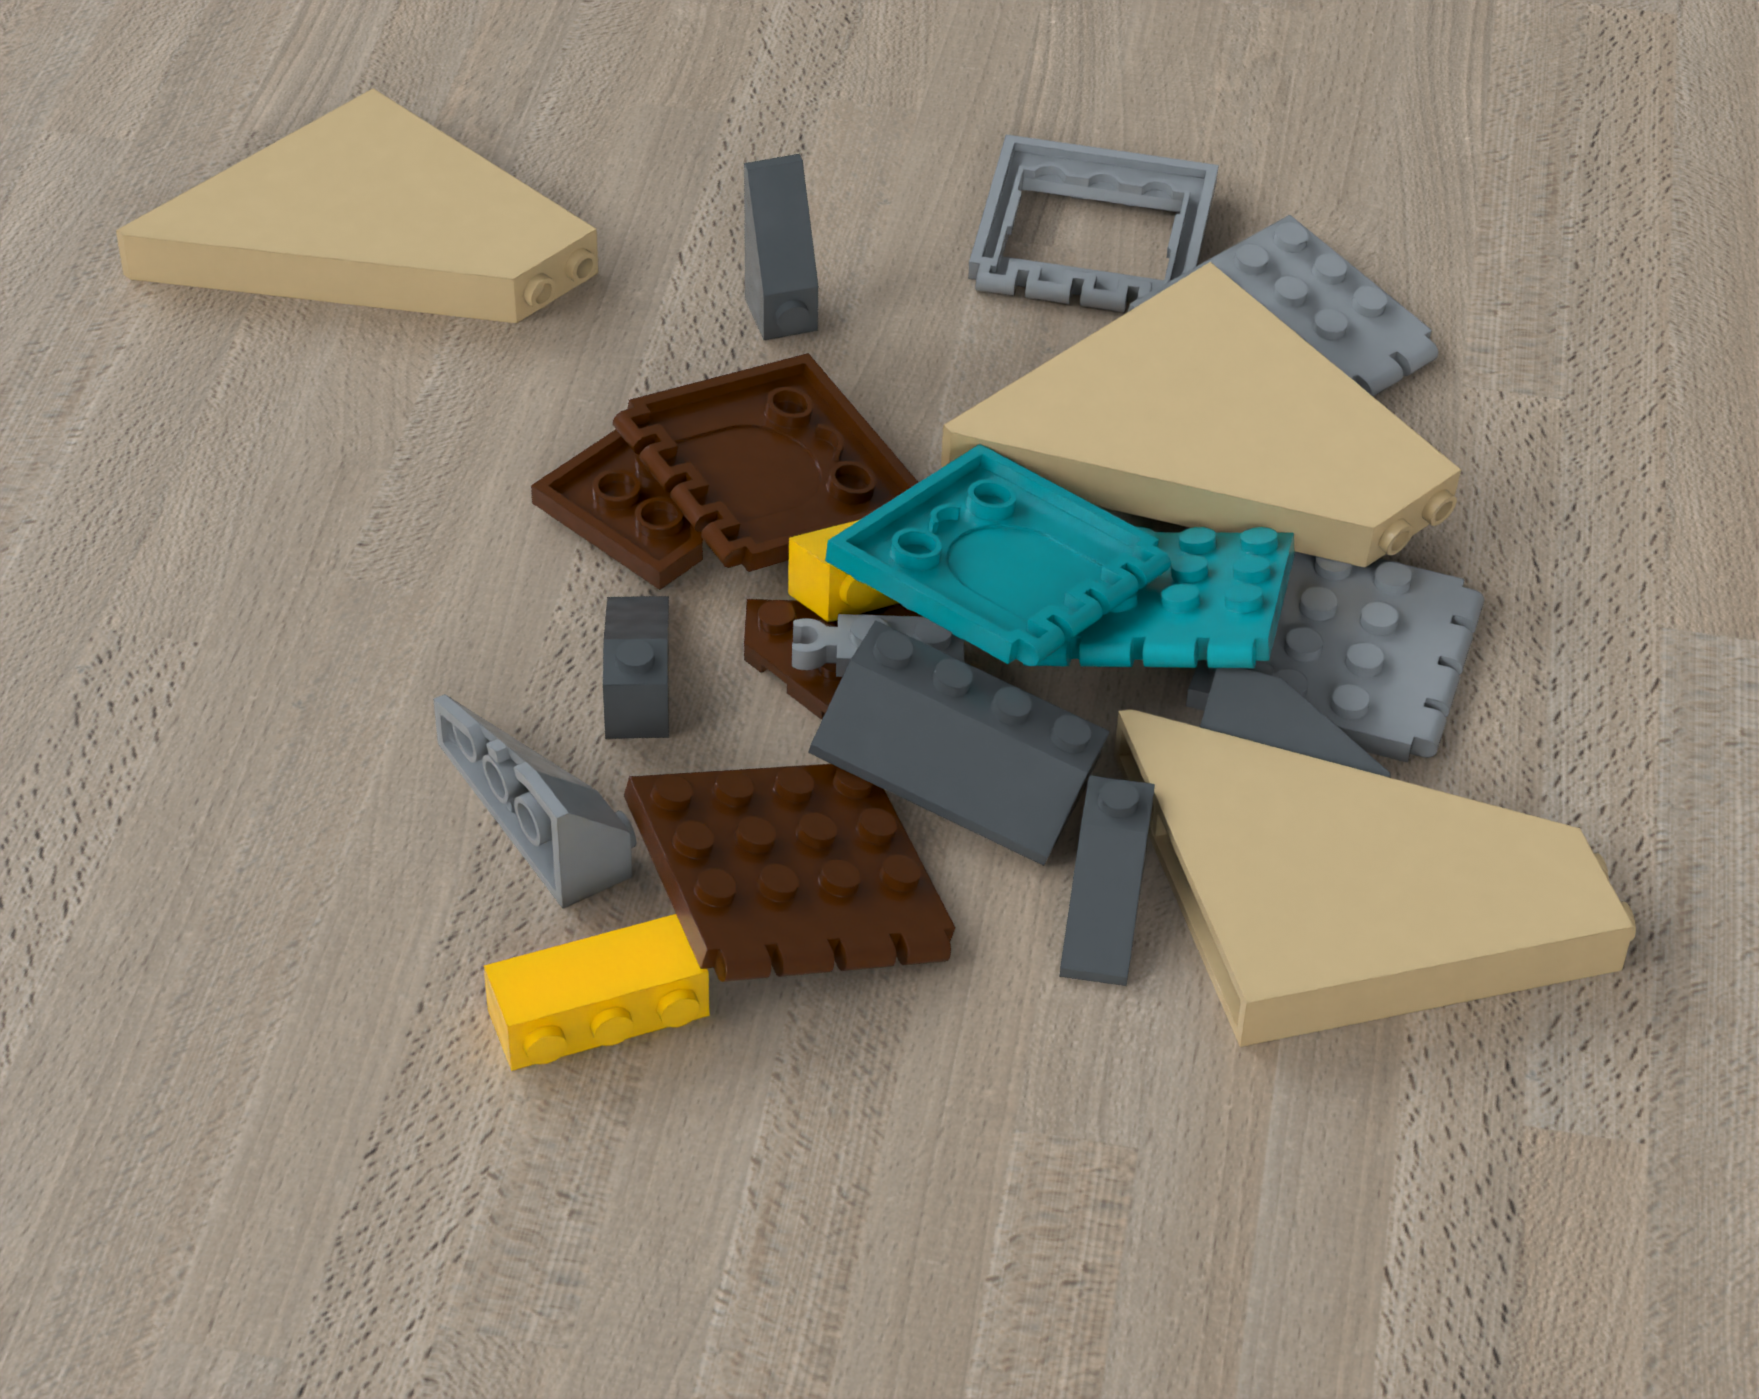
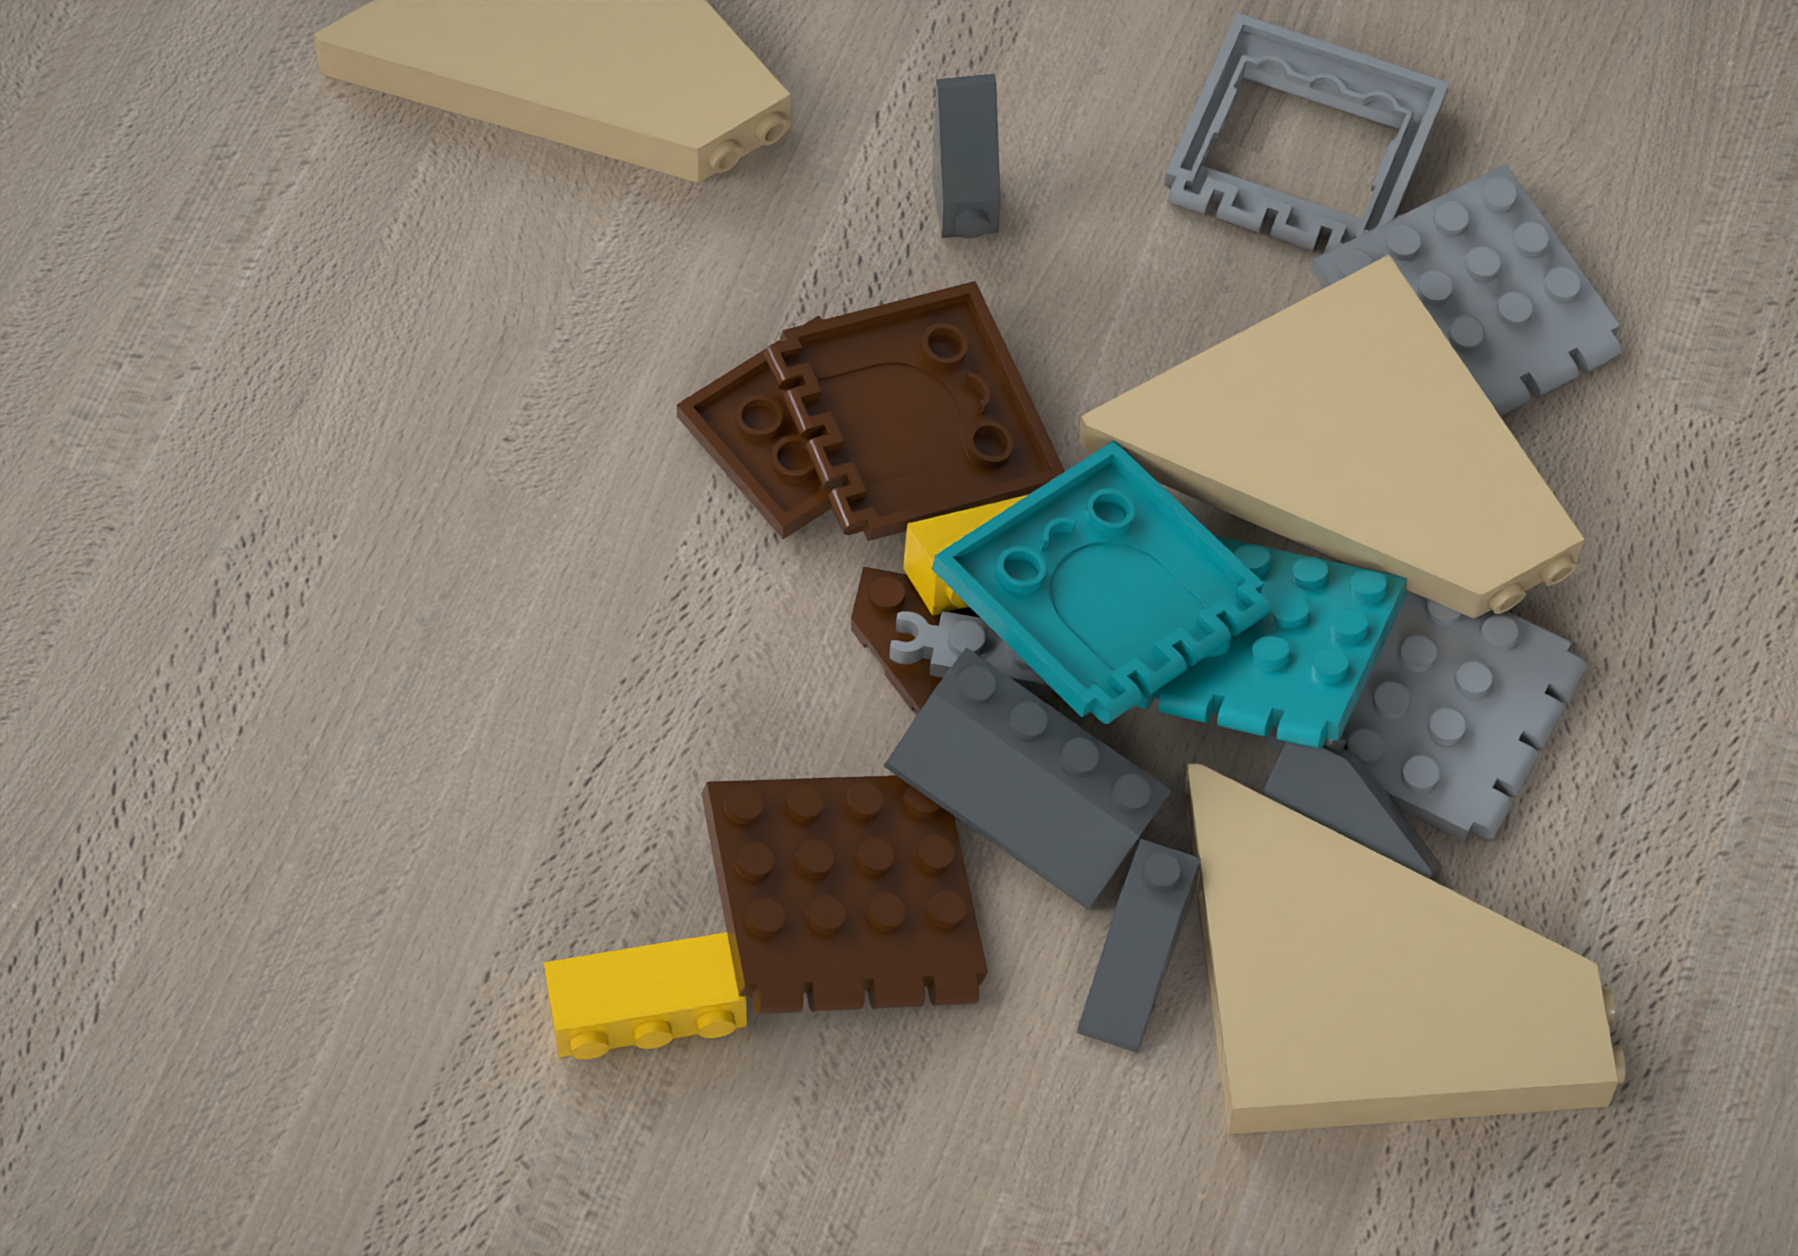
camera: 10 degrees right, 15 degrees up
(544, 810) = (633, 792): light grey wedge -> none
(636, 667) = (744, 625): dark grey slope -> none

